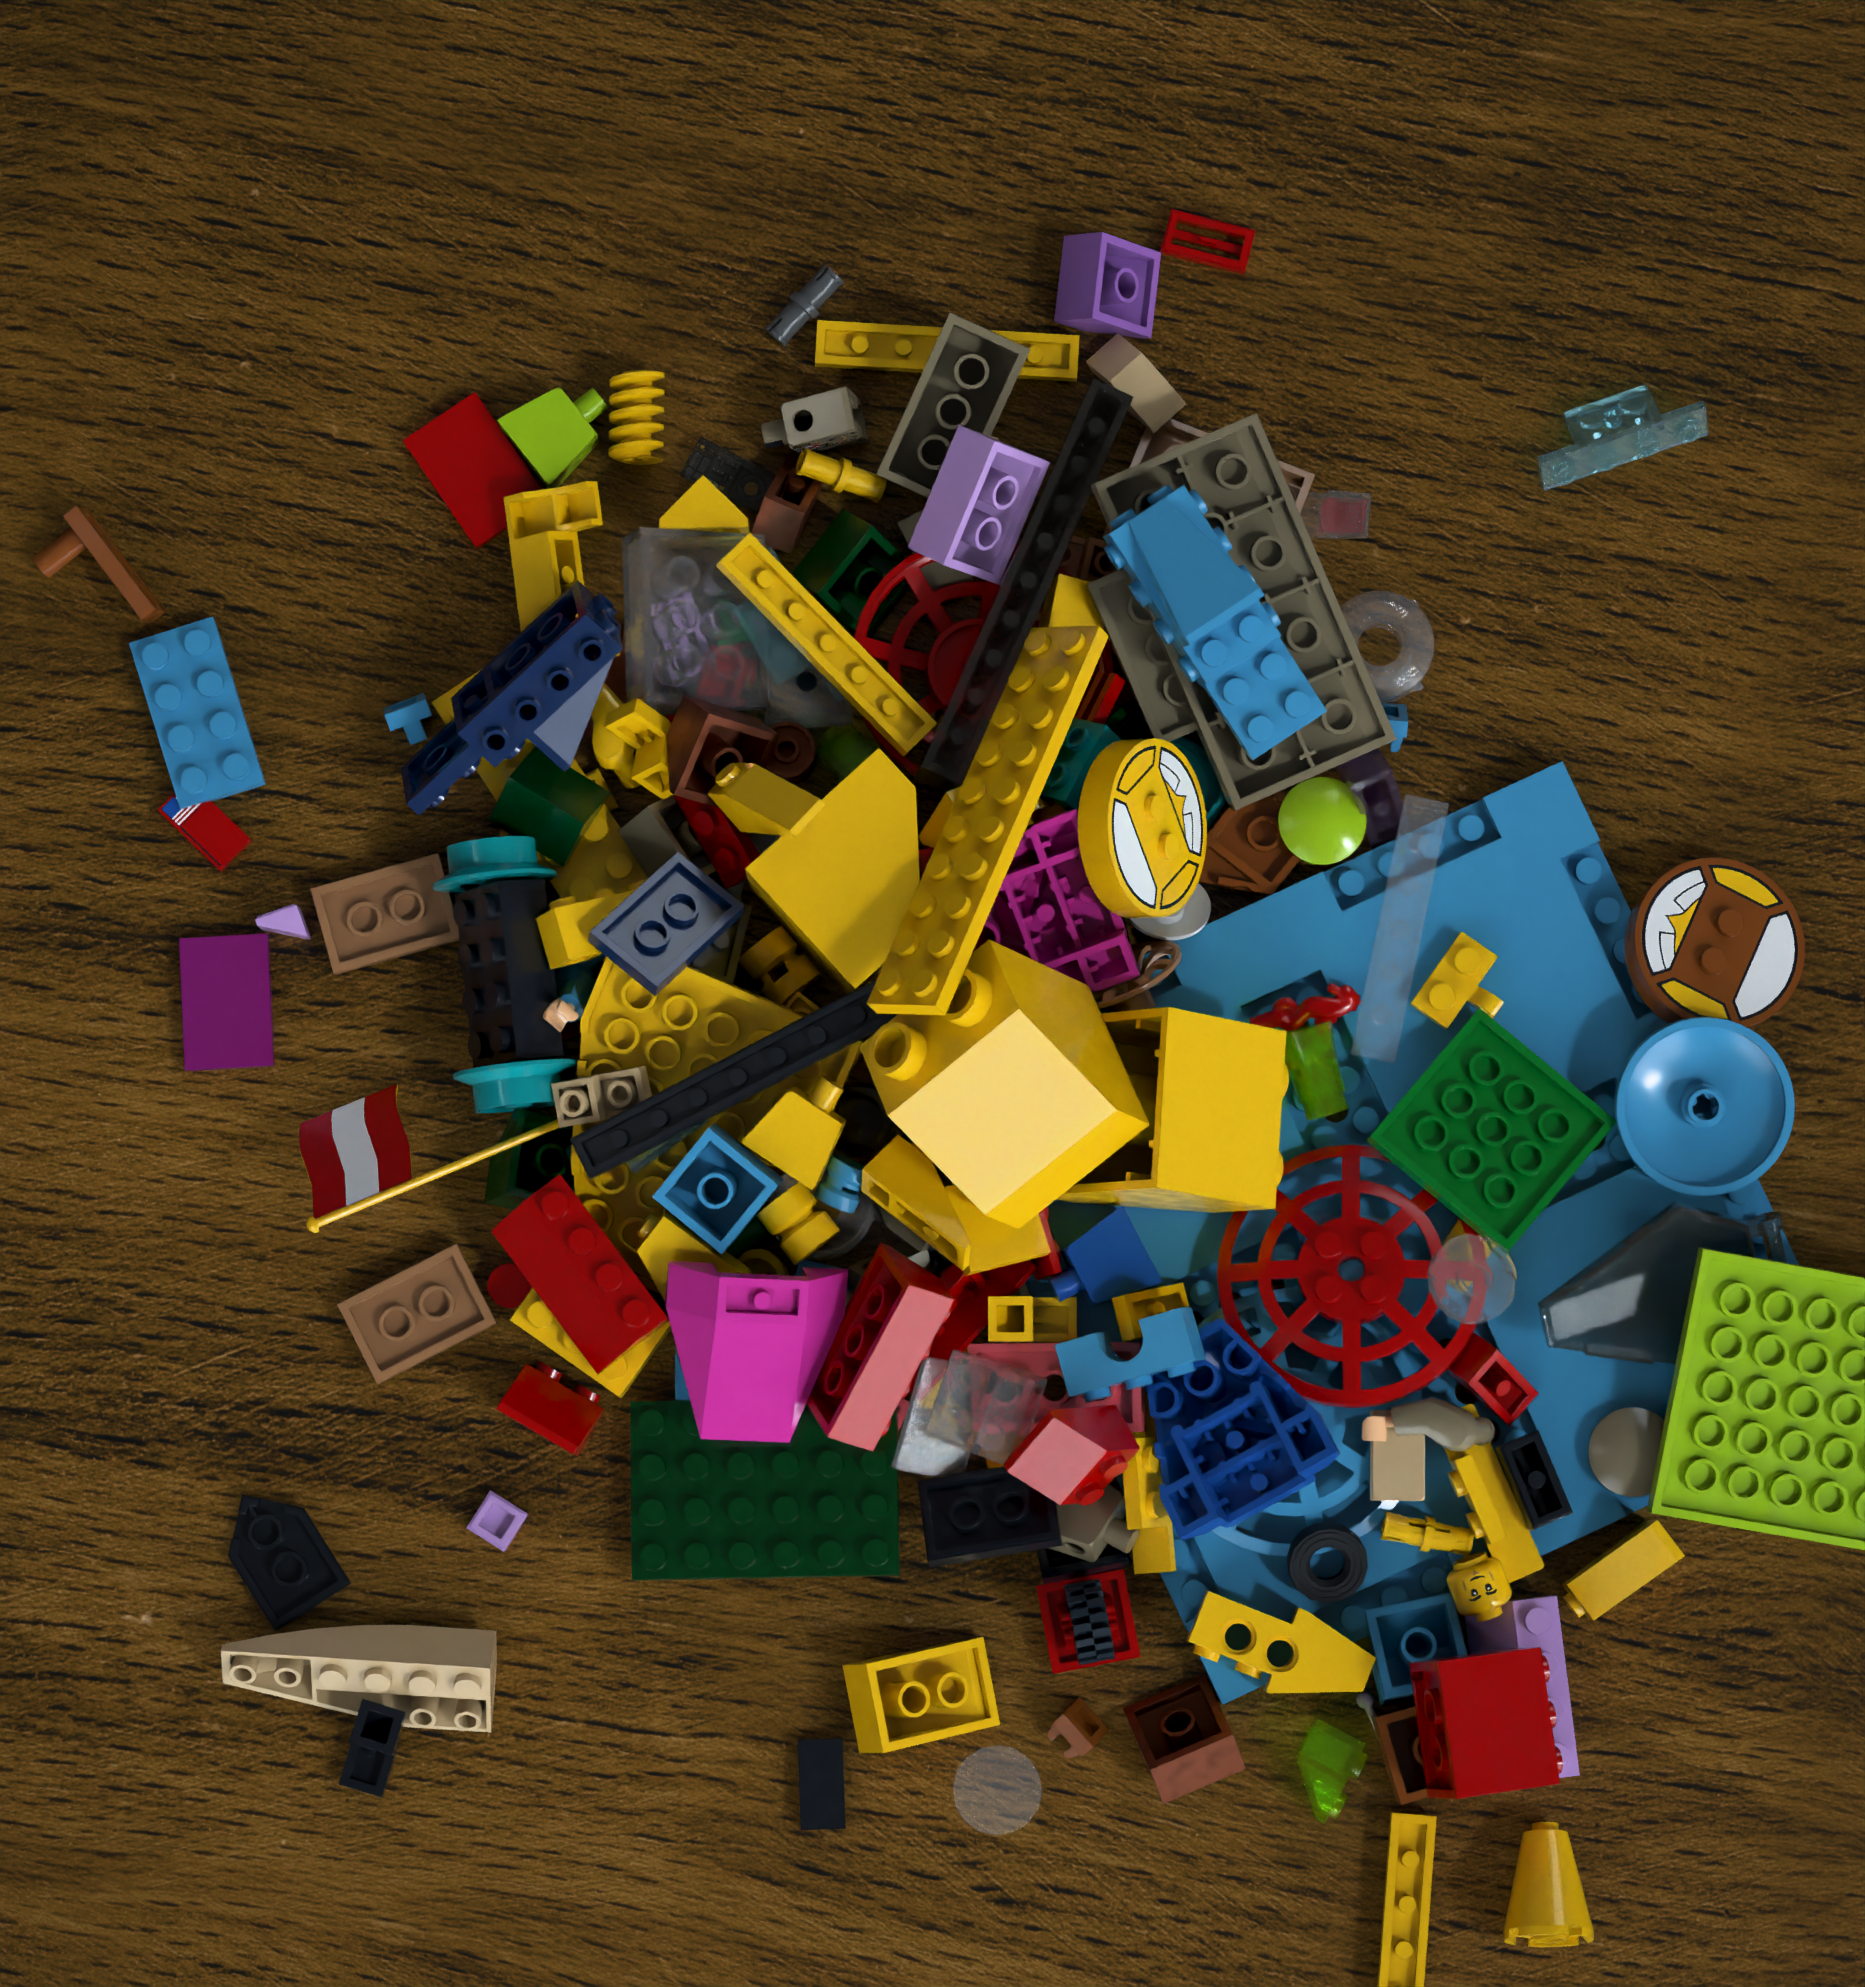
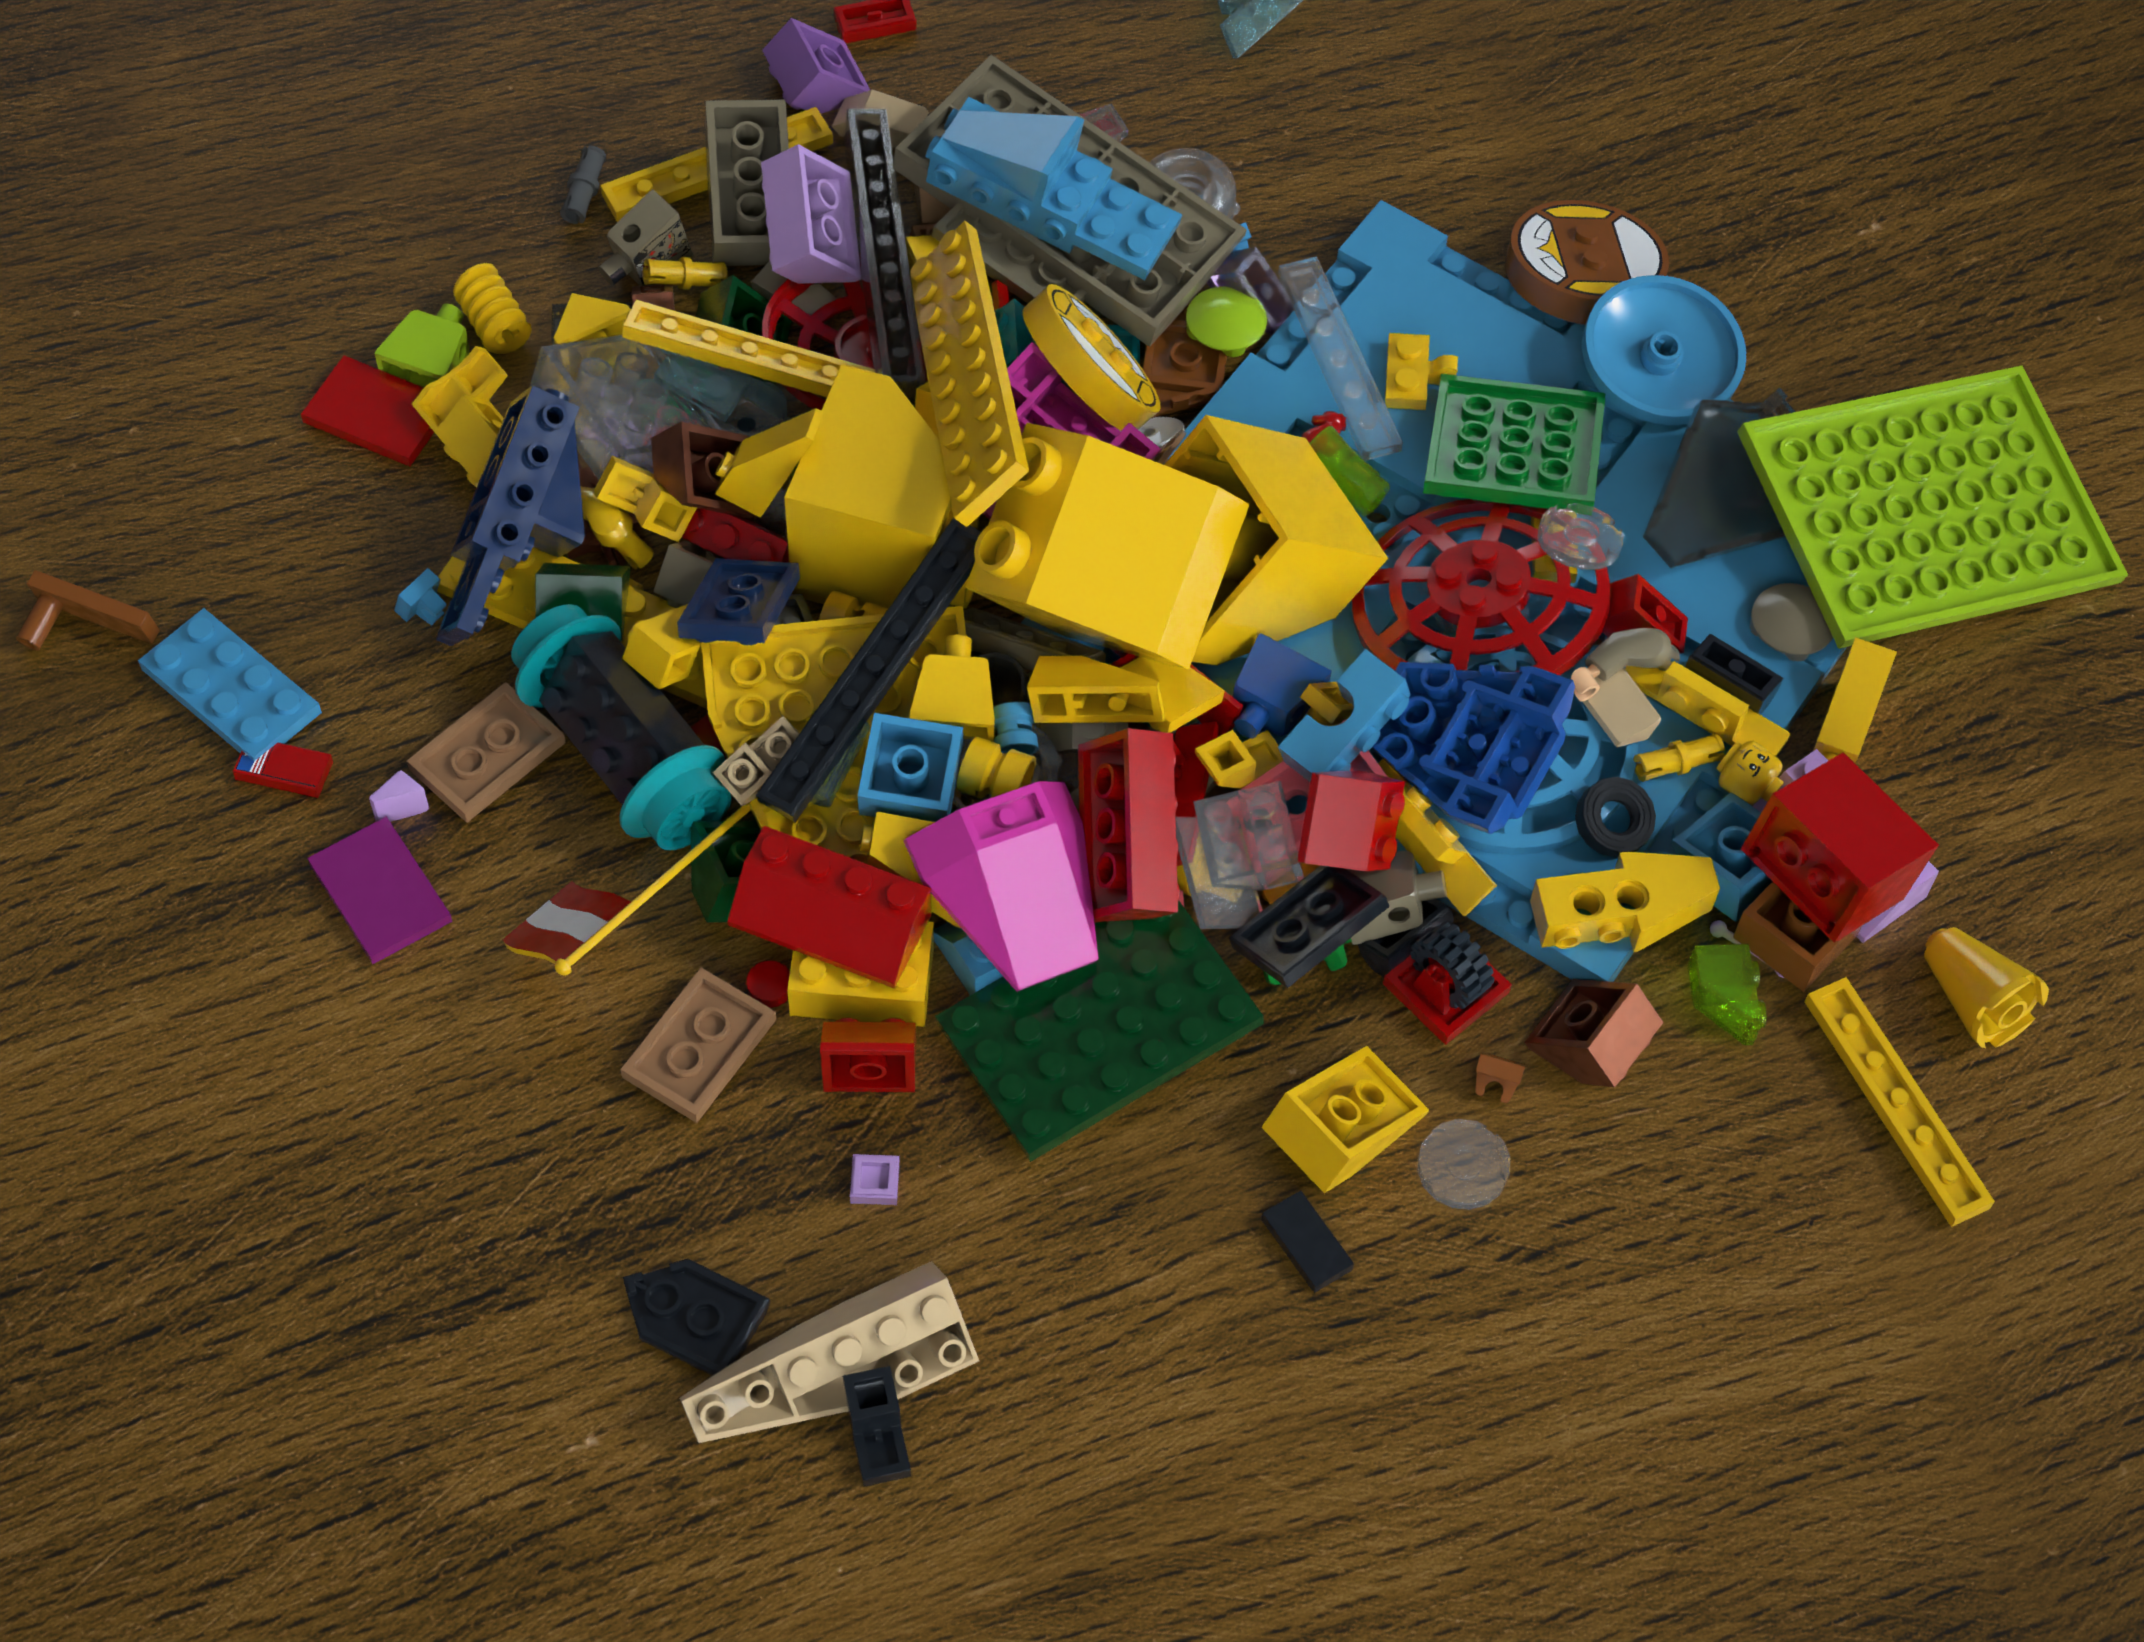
camera: 30 degrees left, 25 degrees down
(574, 989) = (689, 711): dark azure arm -> none

